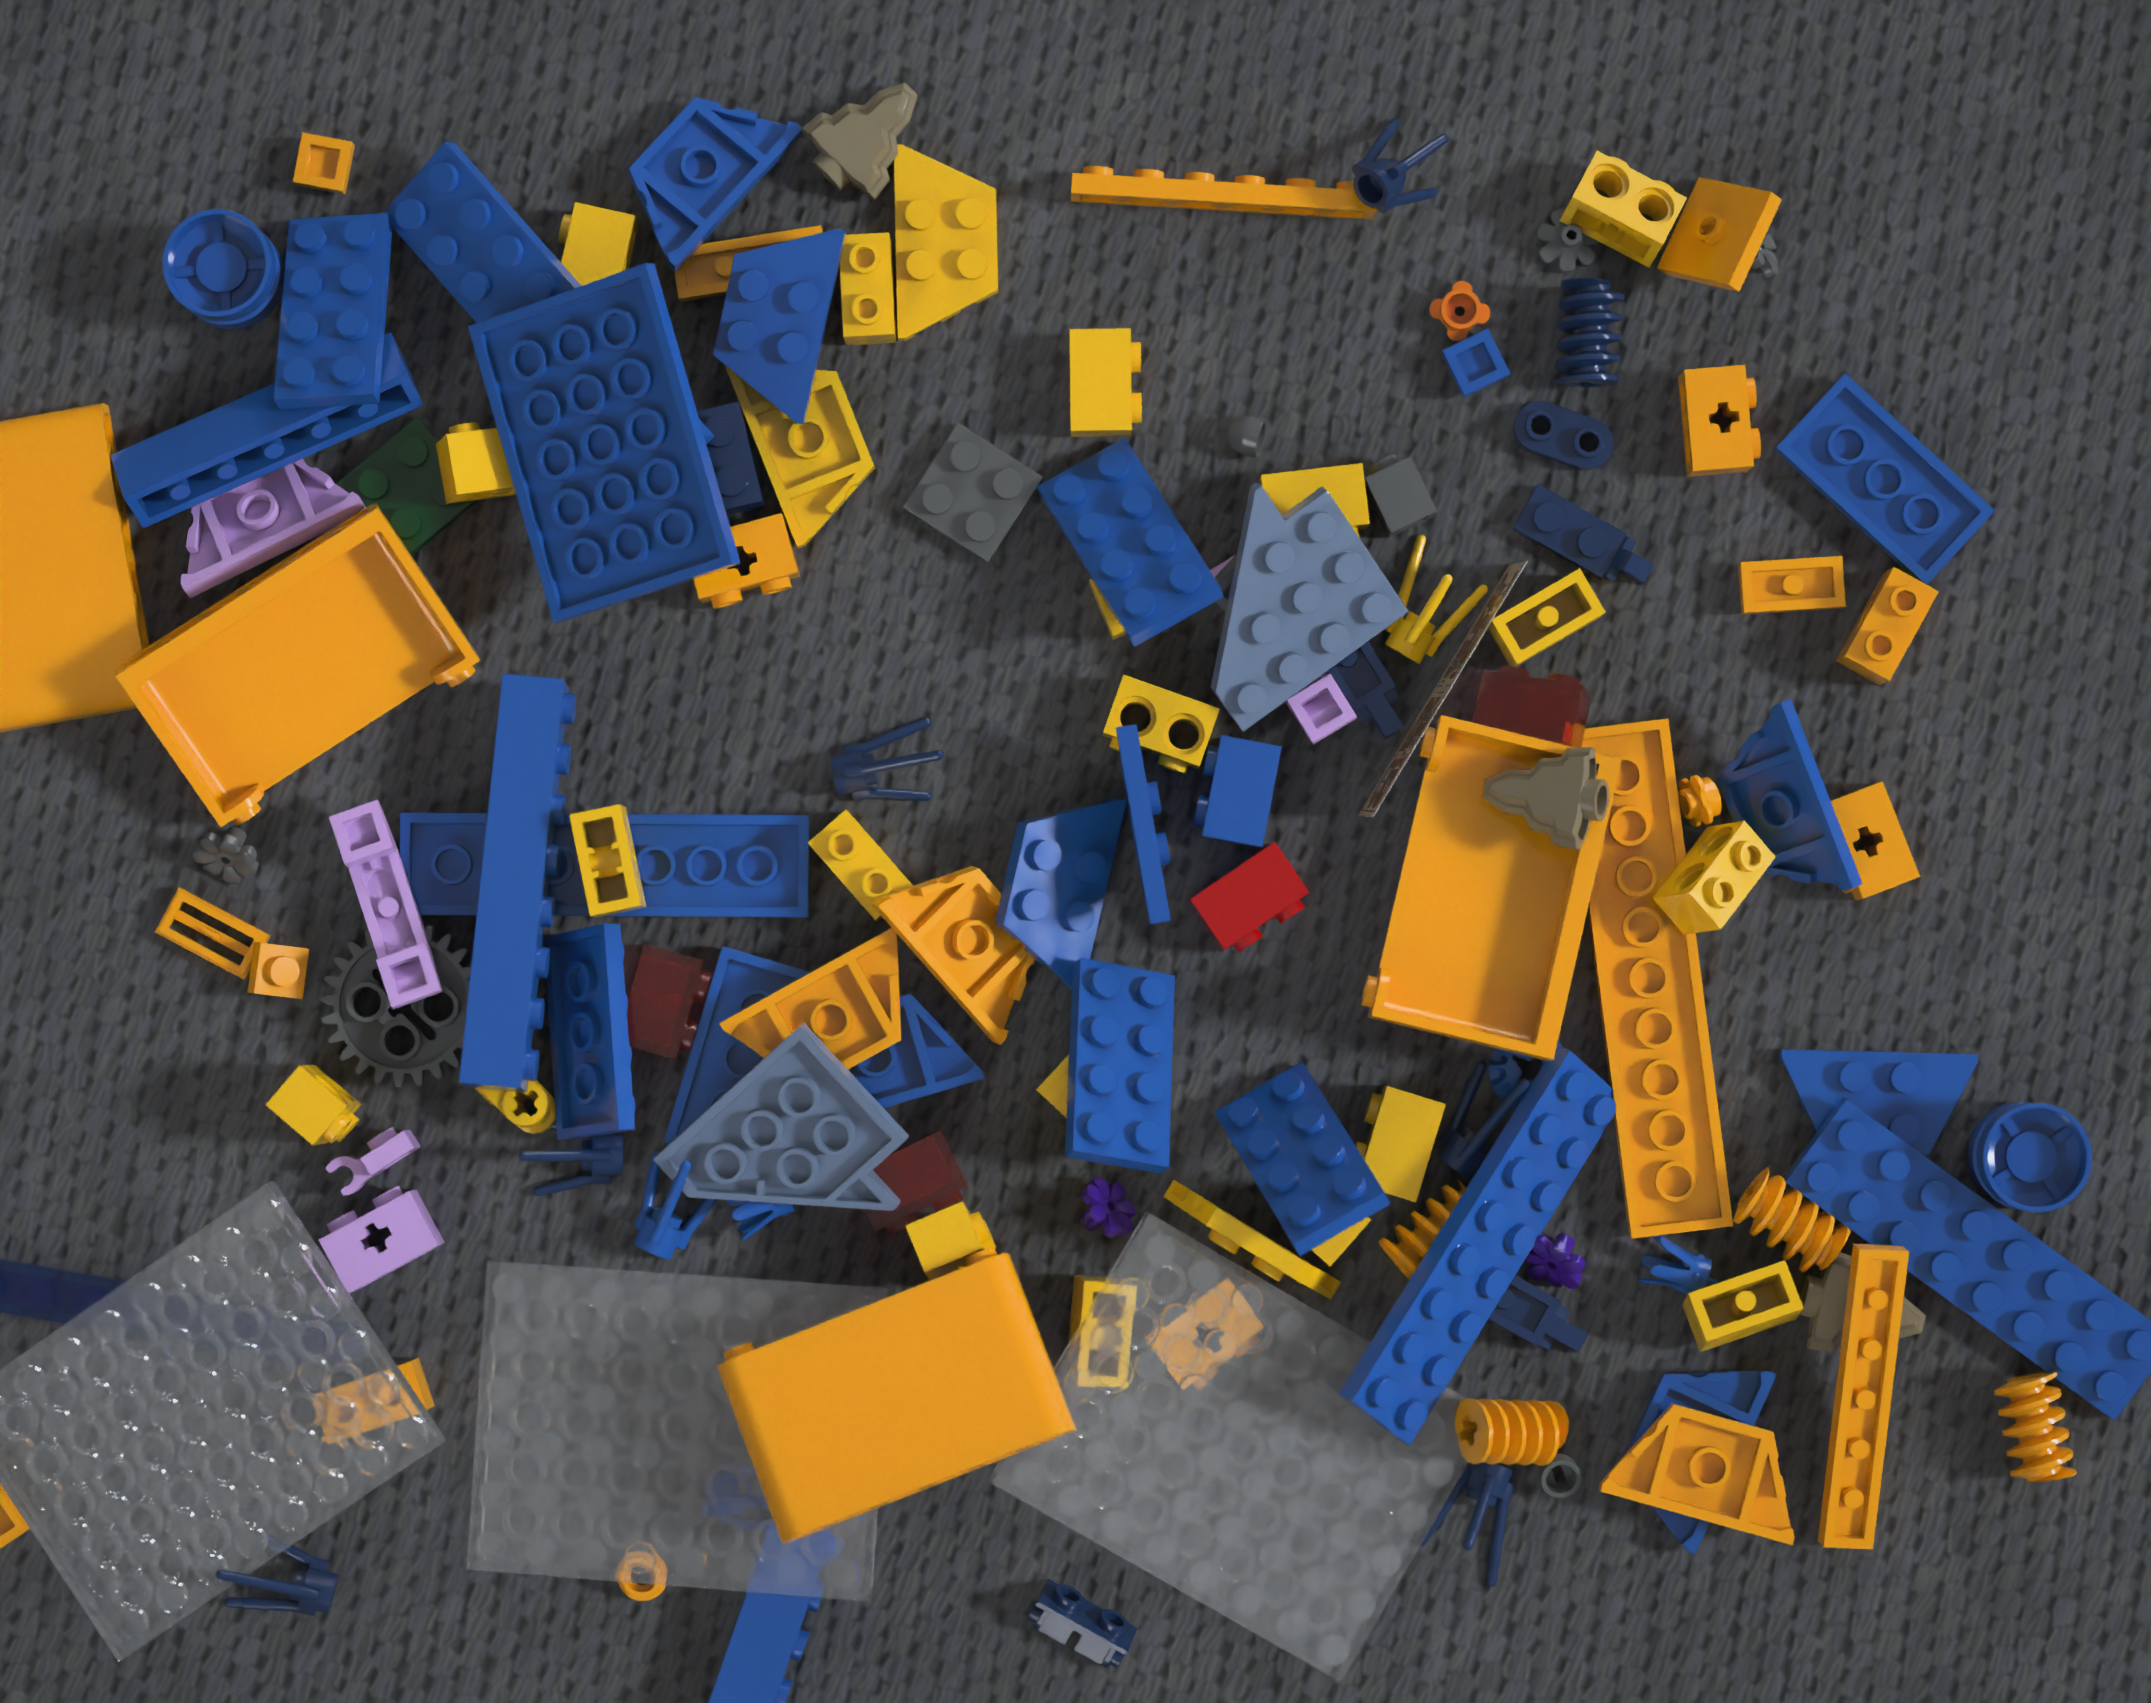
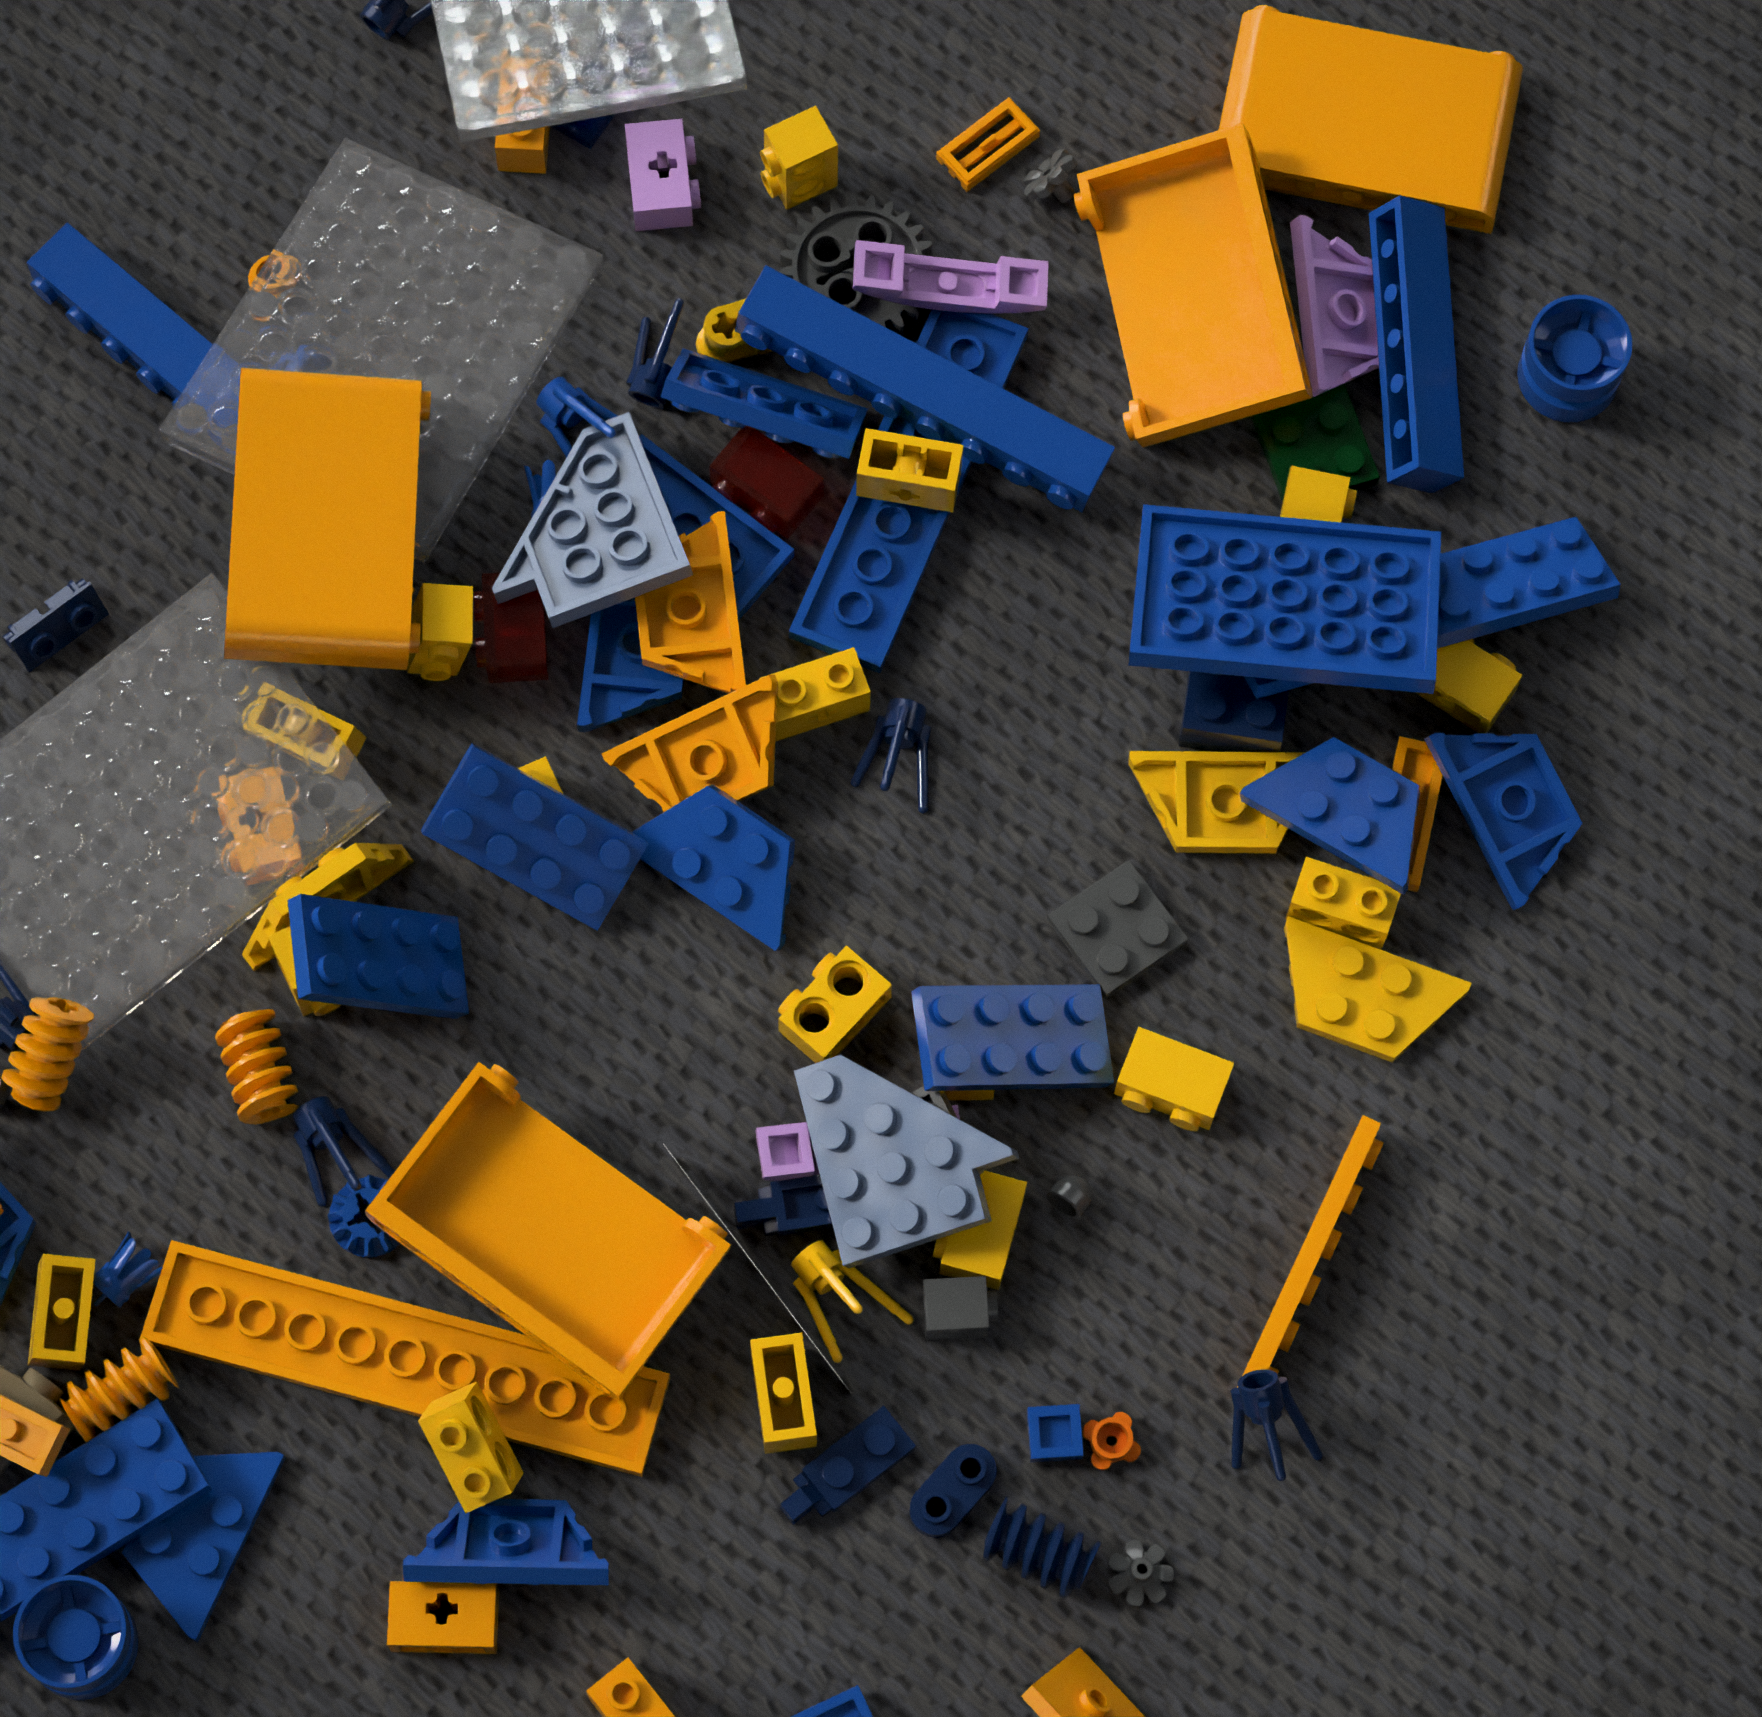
camera: 110 degrees right, 15 degrees down
(278, 970) = (932, 181): light orange plate -> none
(323, 163) = (1641, 485): light orange plate -> none
(333, 311) = (1501, 434): blue plate -> none
(385, 1151) = (735, 208): lavender plate -> none
(776, 564) = (1127, 726): light orange brick -> none
(861, 139) = (1487, 955): dark tan rock -> none
(1107, 1208) = (413, 786): dark purple plant -> none
(1143, 803) = (743, 945): blue wing -> none
(1239, 791) = (740, 1051): blue brick -> none
(1250, 897) = (639, 1022): red brick -> none
(1400, 1139) = (355, 1064): yellow brick -> none
(1481, 1246) = (226, 1090): blue plate -> none
(1533, 706) = (700, 1343): clear red brick -> none
(1536, 1317) = (159, 1112): dark blue hinge -> none
(1554, 796) = (609, 1317): dark tan rock -> none
(1555, 1261) = (184, 1164): dark purple plant -> none
(1618, 219) = (1141, 1618): yellow brick -> none
(1699, 800) = (551, 1472): light orange plate -> none
(1701, 395) = (889, 1617): light orange brick -> none
(1791, 585) = (719, 1647): light orange plate -> none

